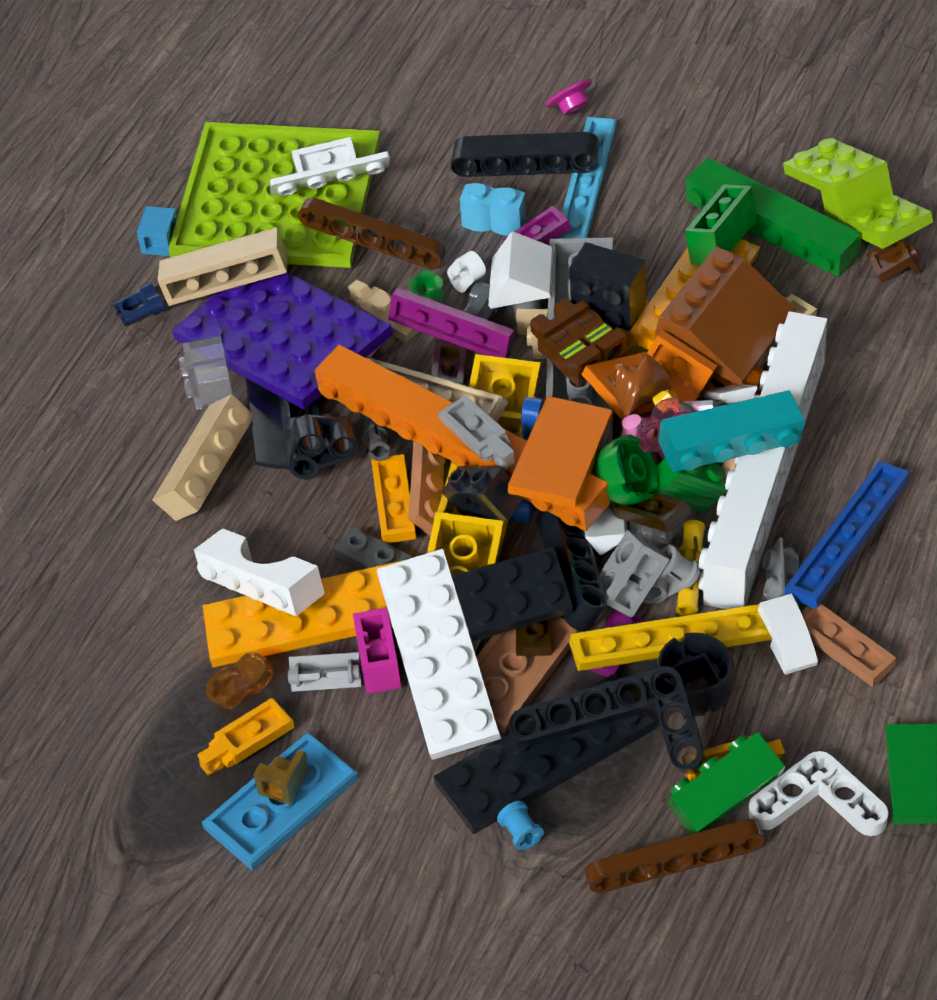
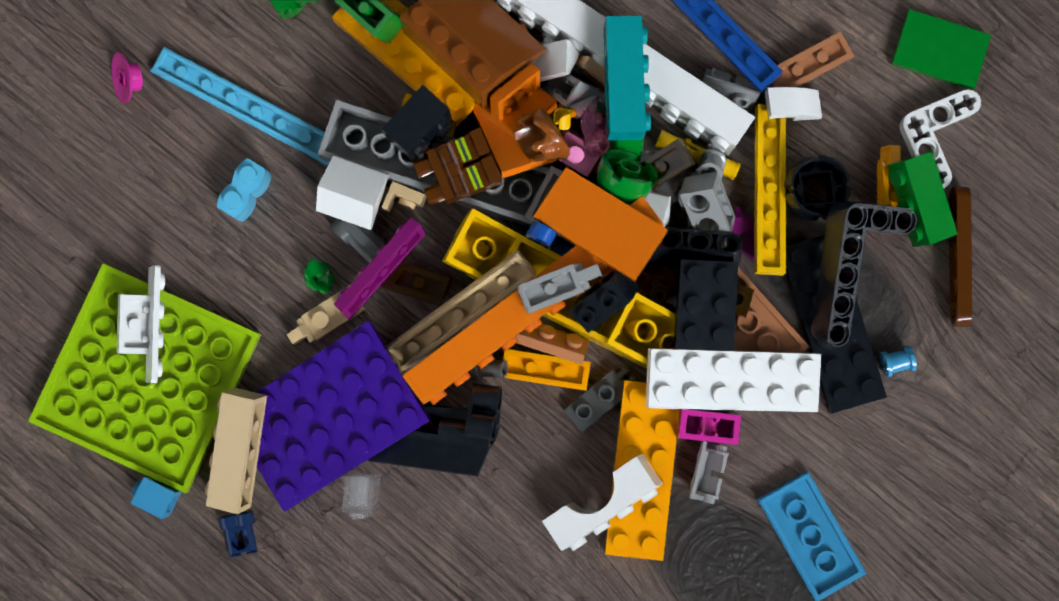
camera: 75 degrees left, 35 degrees up
(203, 457) = (453, 518): tan brick -> none
(239, 680) = (696, 554): clear orange piece -> none
(245, 736) = (747, 548): light orange hinge -> none
(282, 778) = (804, 531): pearl gold panel -> none
(357, 234) = (240, 307): reddish brown beam -> none
(466, 271) = (319, 236): white beam -> none
(525, 154) = (185, 141): black beam -> none
(546, 226) = (288, 161): magenta plate -> none

